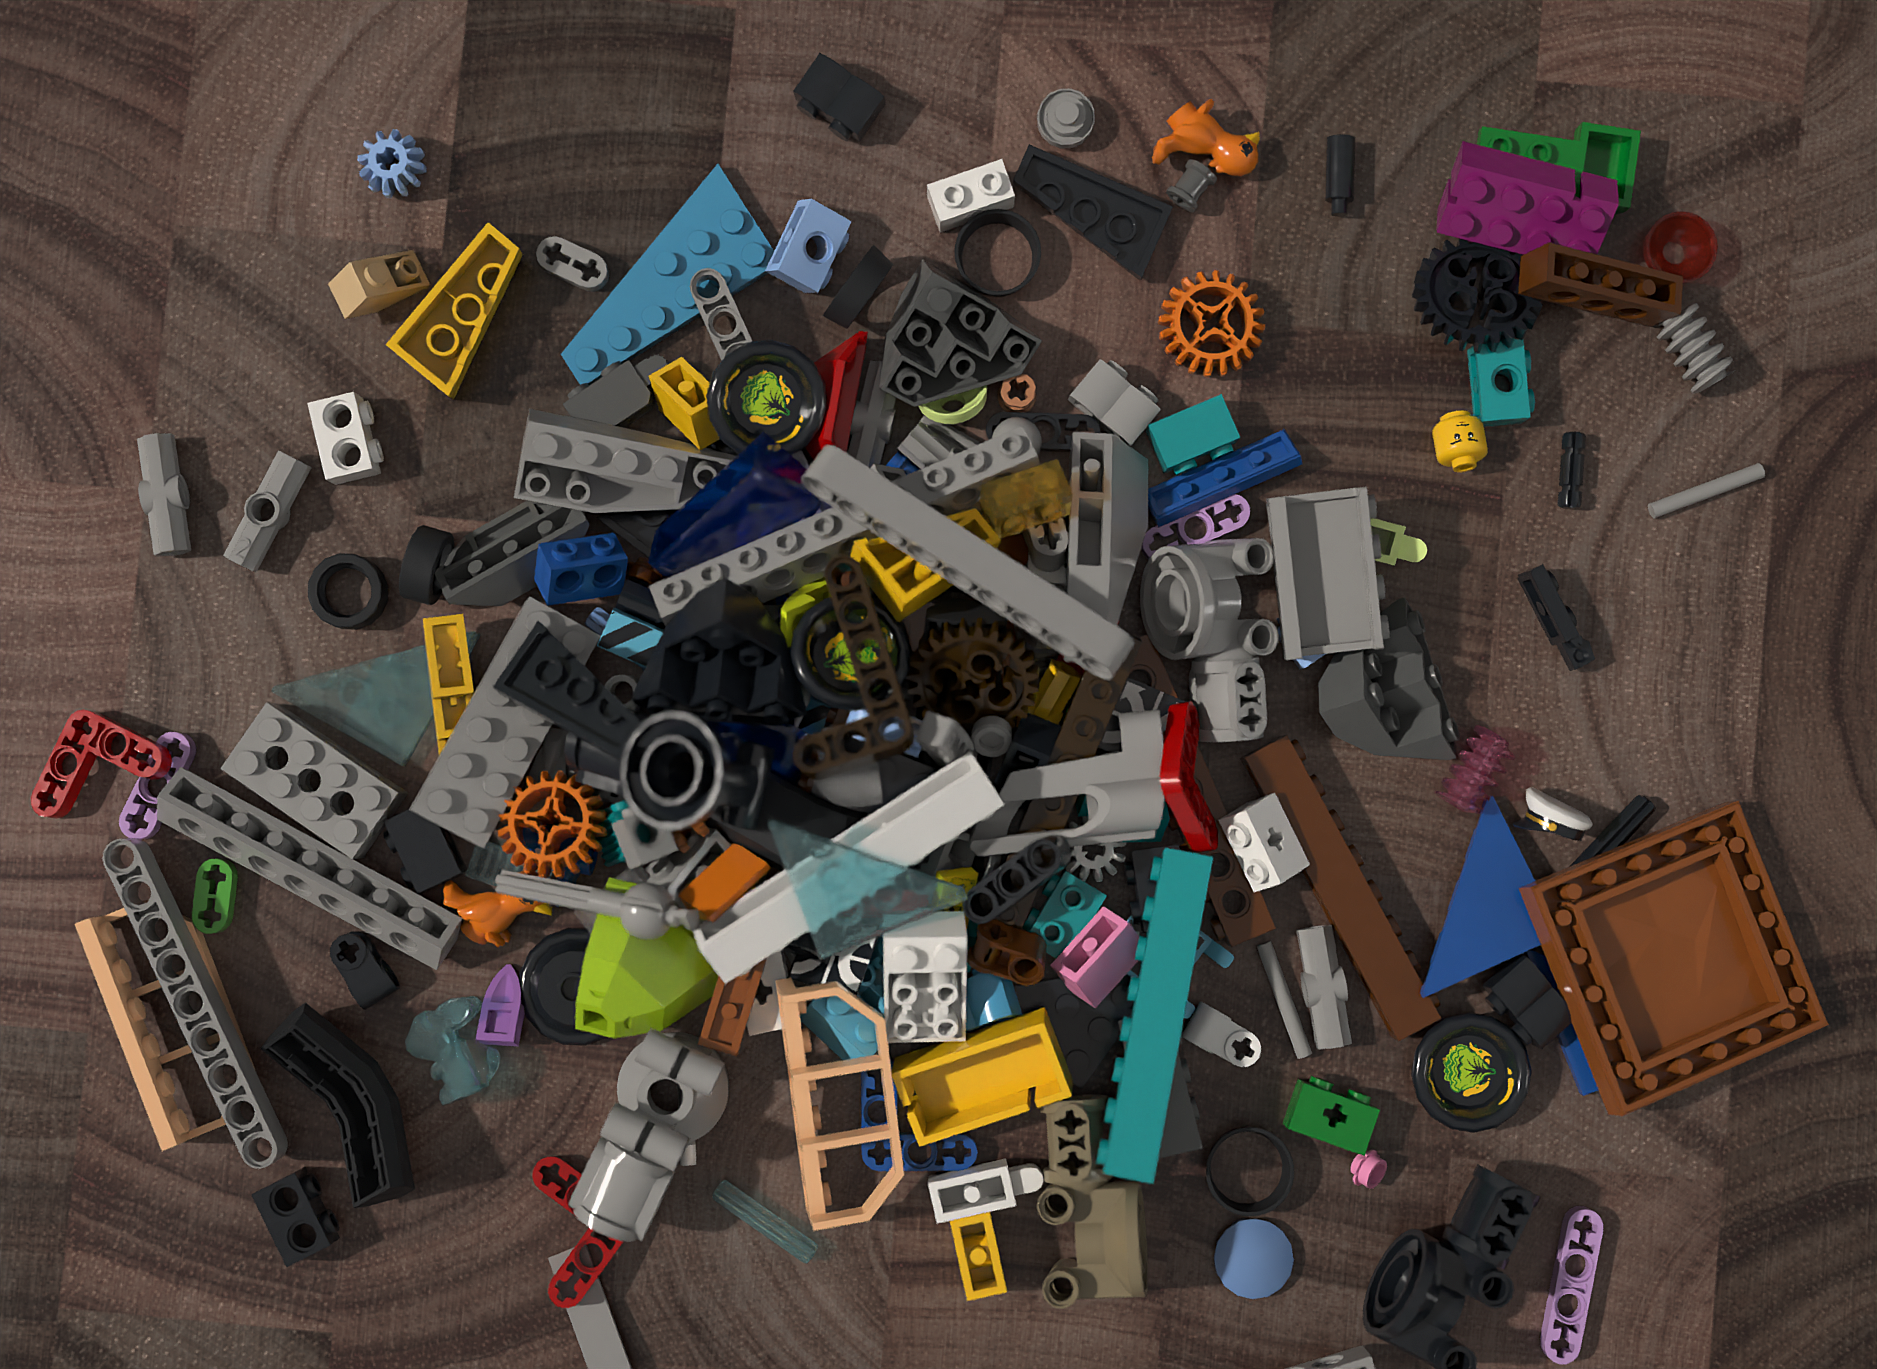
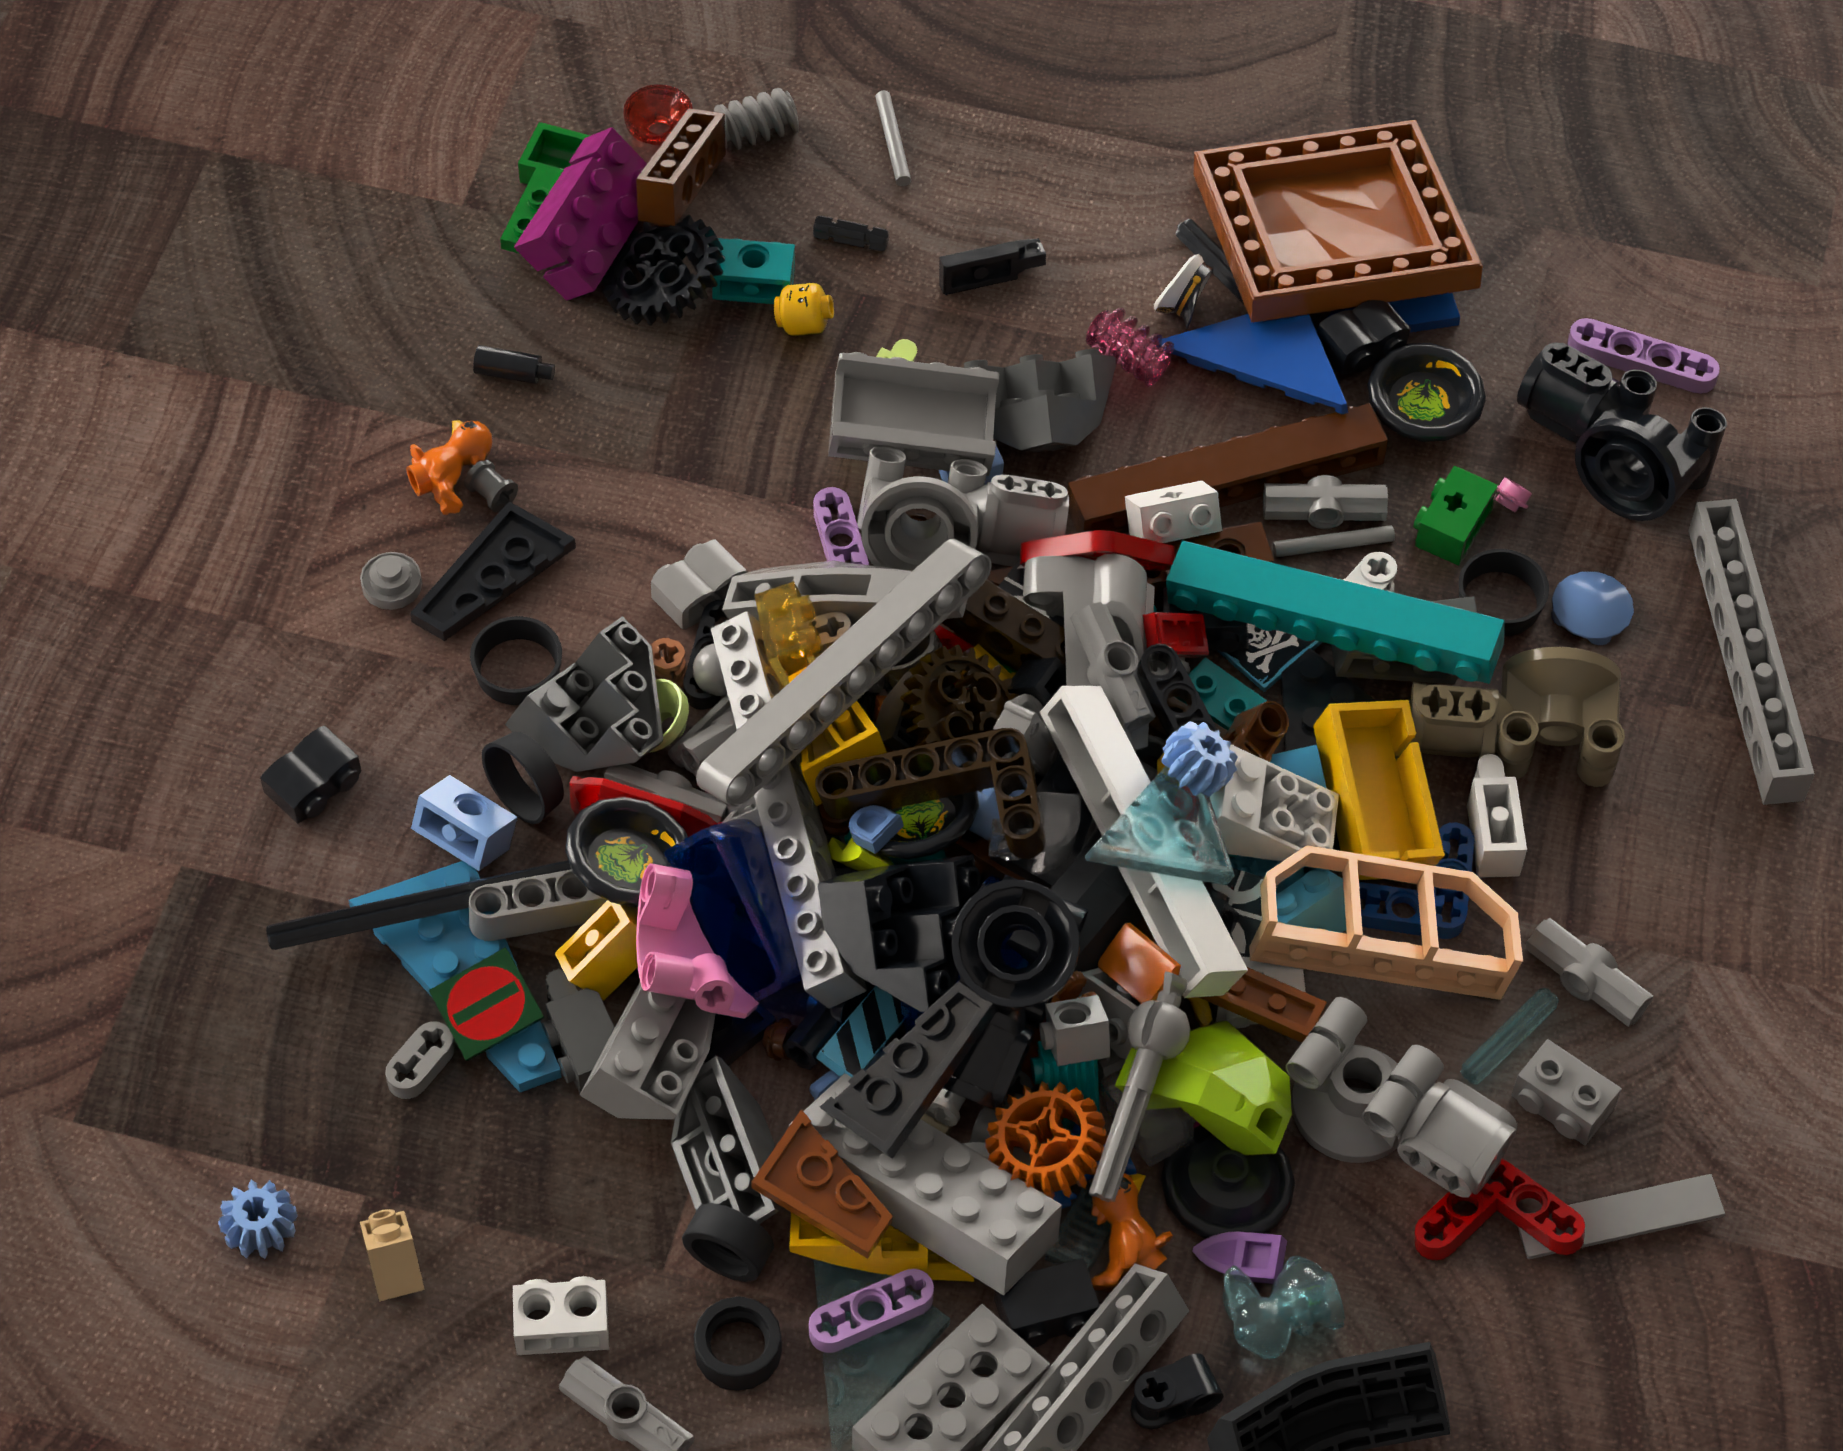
camera: 80 degrees left, 30 degrees down
(382, 668) = (836, 1311): none -> lavender beam
(455, 314) = (451, 1175): yellow wedge -> none
(465, 637) = (821, 1189): none -> dark orange wing
(580, 568) = (766, 1081): blue brick -> none
(625, 309) = (486, 1004): none -> piece
(666, 469) = (674, 951): none -> bright pink panel
(708, 220) = (390, 910): none -> black axle
(709, 1279) = (1565, 1092): none -> light grey brick
(814, 617) = (874, 827): none -> medium blue tile
(839, 1288) = (1589, 972): none -> light grey piece
(931, 910) = (1199, 758): none -> light blue gear
(970, 193) = (450, 671): white brick -> none
(978, 1256) = (1565, 830): yellow brick -> none
(1058, 797) = (1112, 665): none -> light grey piece
(1098, 957) = (1268, 669): bright pink brick -> none
(1108, 865) = (1178, 630): none -> red plate
(1193, 435) = (746, 521): teal brick -> none
(1222, 477) = (794, 501): blue tile -> none
(1232, 298) = (633, 502): orange gear -> none

